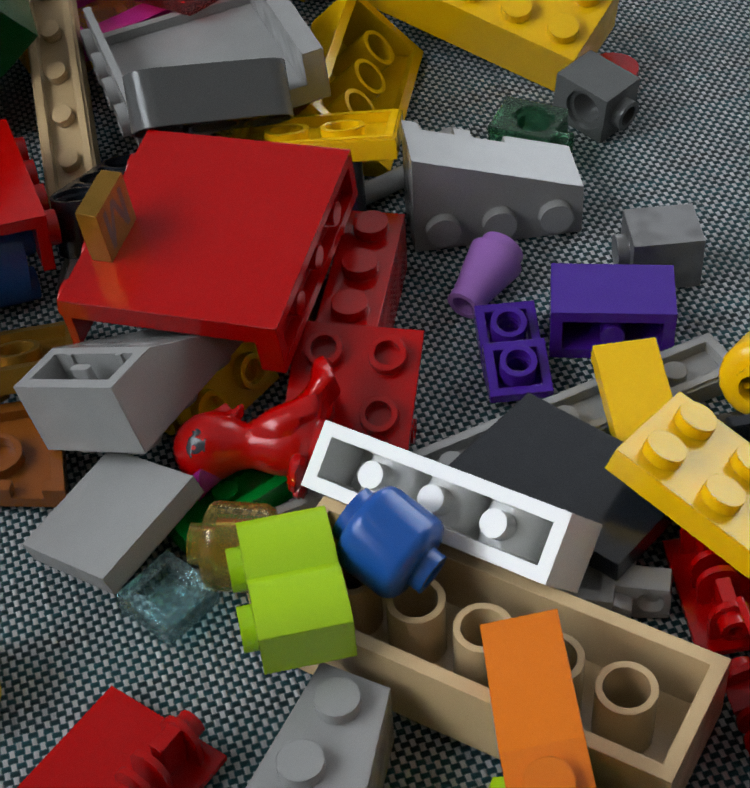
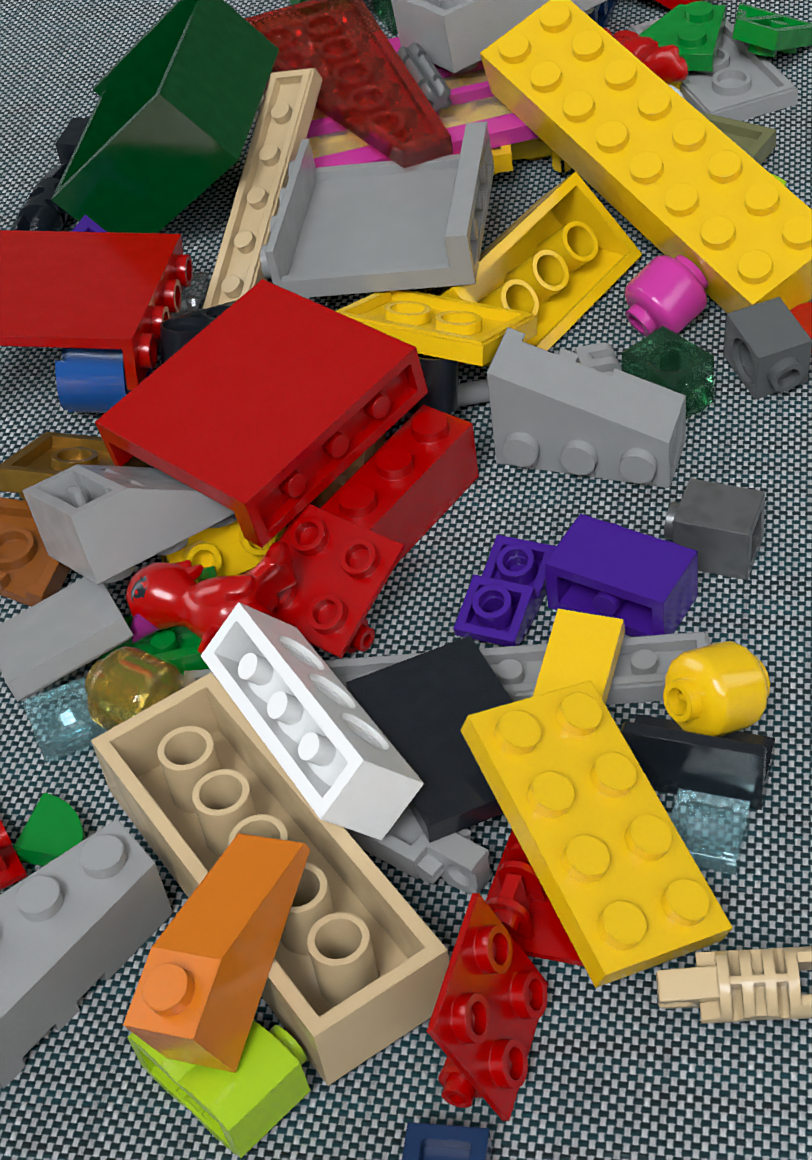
camera: 30 degrees right, 0 degrees up
(106, 215) = (162, 355): pearl gold tile -> none
(208, 96) = (339, 259): dark grey beam -> none
(232, 710) = (49, 831): none -> green tile
(294, 589) = (111, 746): lime brick -> none
(389, 542) = (212, 731): blue head -> none
(479, 76) = (666, 294): none -> dark pink head
(486, 271) = (533, 503): medium lavender cone -> none

